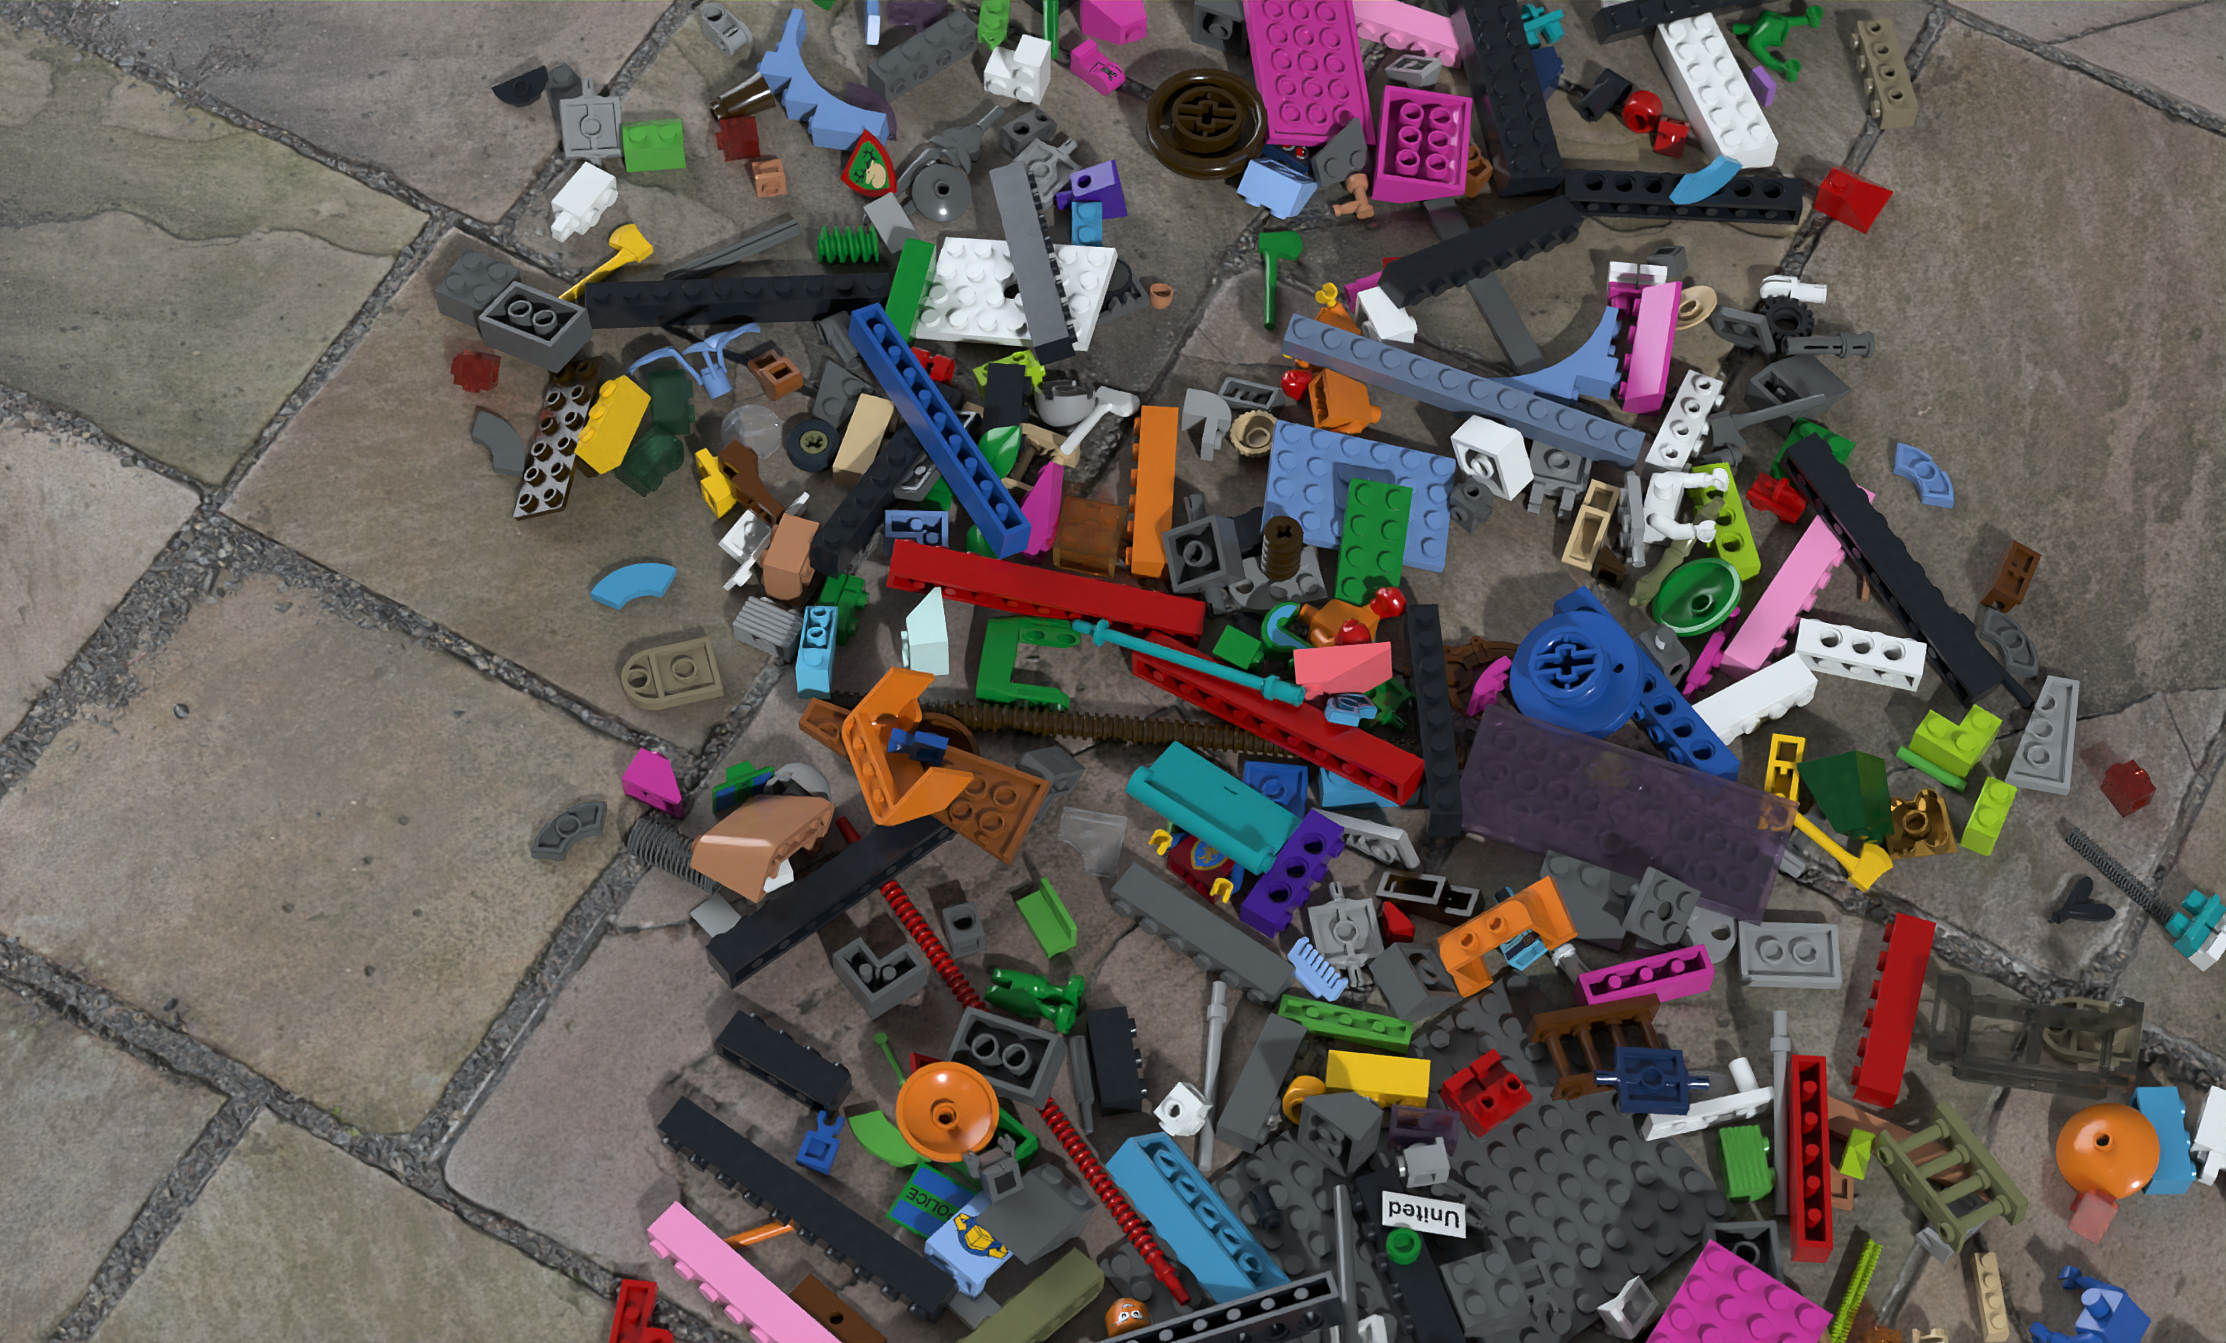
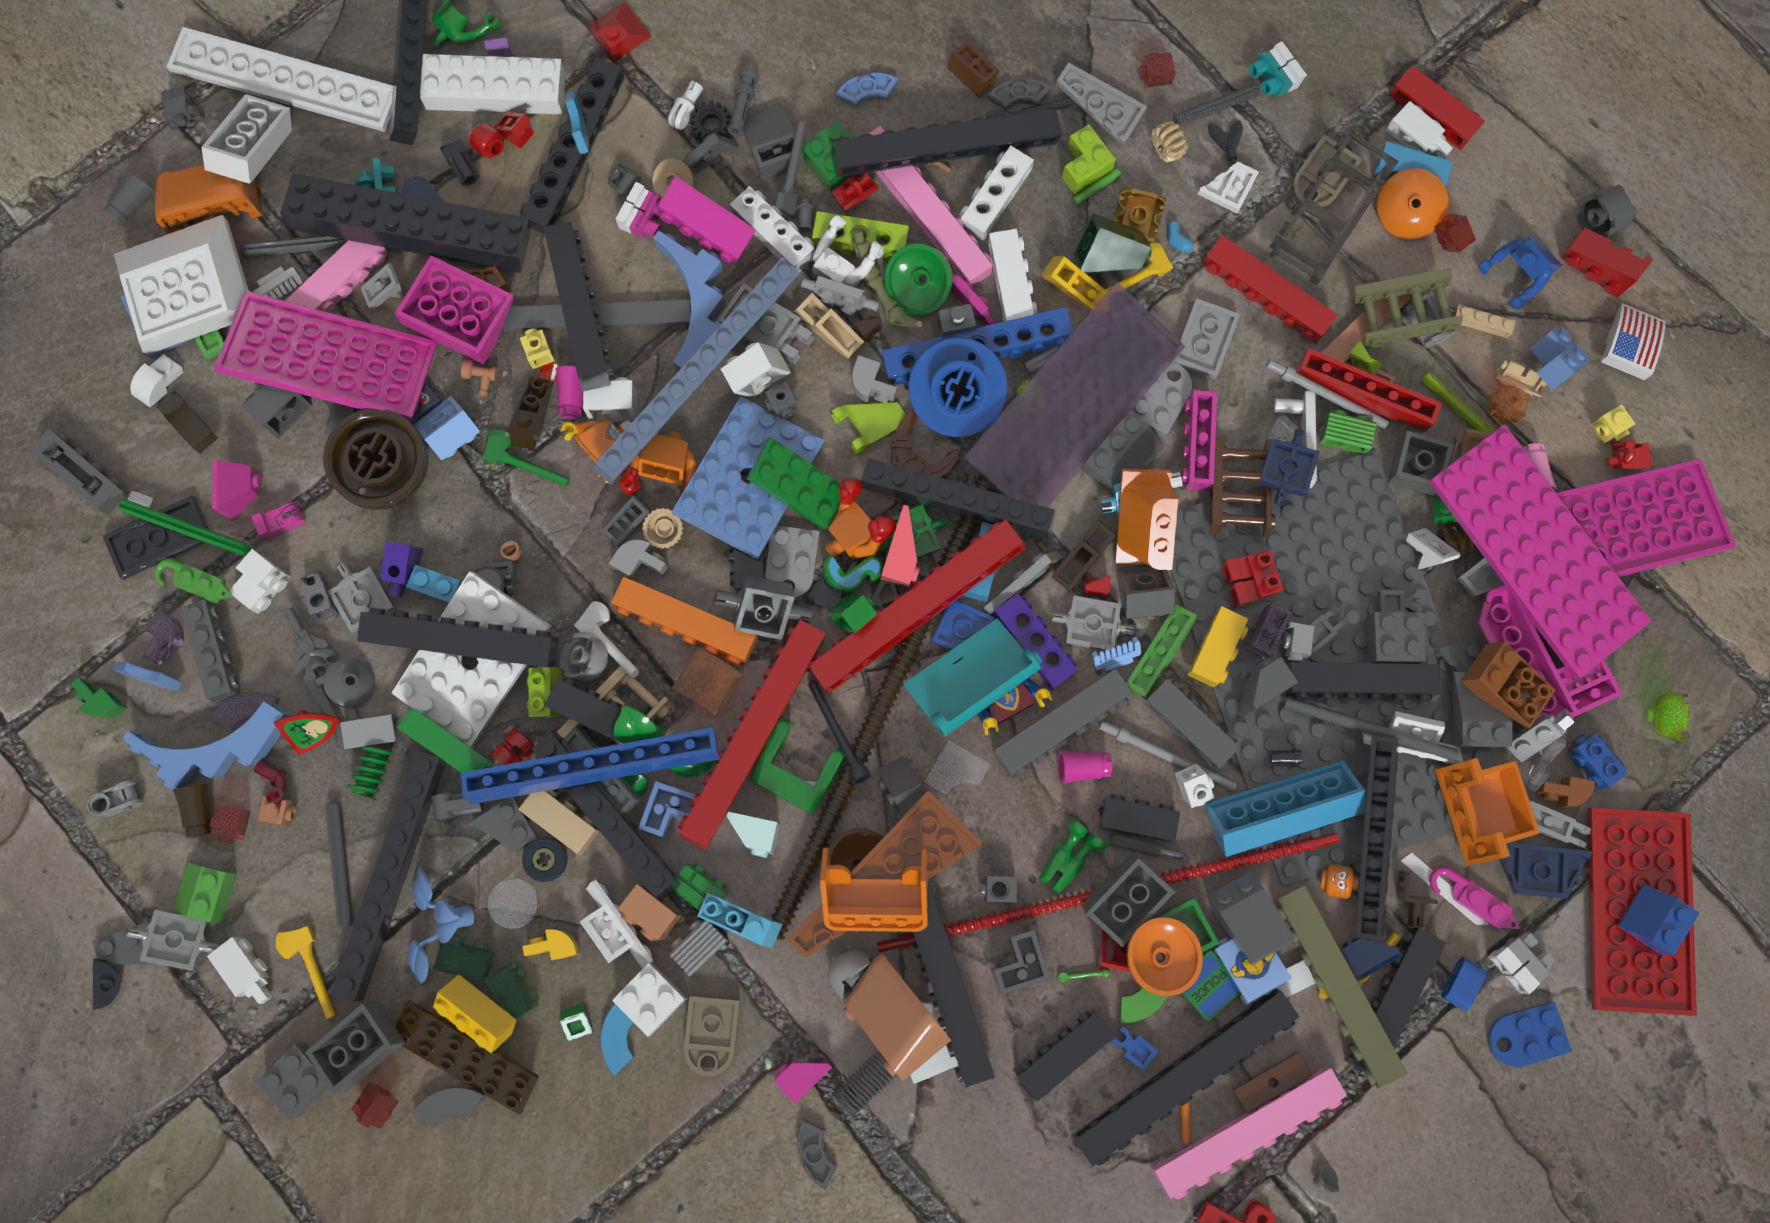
camera: 70 degrees left, 20 degrees up
(637, 537) = (575, 1022): none -> green slope
(691, 597) = (649, 999): none -> white brick
(740, 783) = (832, 1015): green piece -> none
(741, 467) = (556, 925): reddish brown slope -> none
(776, 374) = (470, 868): dark orange brick -> none
(805, 164) = (277, 780): none -> dark red piece
(922, 746) = (872, 871): blue plate -> none
(996, 1169) = (1219, 937): dark grey piece -> none
(1042, 511) = (678, 710): dark pink slope -> none
(1045, 718) = (858, 772): none -> black piece
(1048, 920) = (1011, 827): bright green panel -> none
(1156, 974) = (1083, 766): none -> dark pink plant
(1270, 687) = (902, 603): teal bar -> none
(1281, 548) = (785, 540): dark brown piece -> none
(1297, 1092) = (1216, 700): light orange head -> none
(1330, 260) = (530, 413): none -> dark brown slope
(1342, 156) = (442, 370): dark grey wing -> none
(1349, 709) = (933, 556): dark azure tile -> none
(1403, 1246) = (1354, 678): green tile -> none
(1414, 238) = (541, 353): none -> light yellow brick
(1423, 1214) = (1332, 655): white sticker -> none
(1492, 611) = (870, 421): none -> lime flag
(1492, 680) = (937, 450): dark pink slope -> none
(1539, 587) = (866, 385): none -> light grey brick
(1659, 908) = (1159, 408): dark grey piece -> none
(1908, 881) = (1177, 240): none -> dark azure arm
(1988, 816) = (1149, 166): lime brick -> none
(2014, 925) = (1230, 187): none -> white wing
(2033, 825) = (1169, 141): none -> tan gear

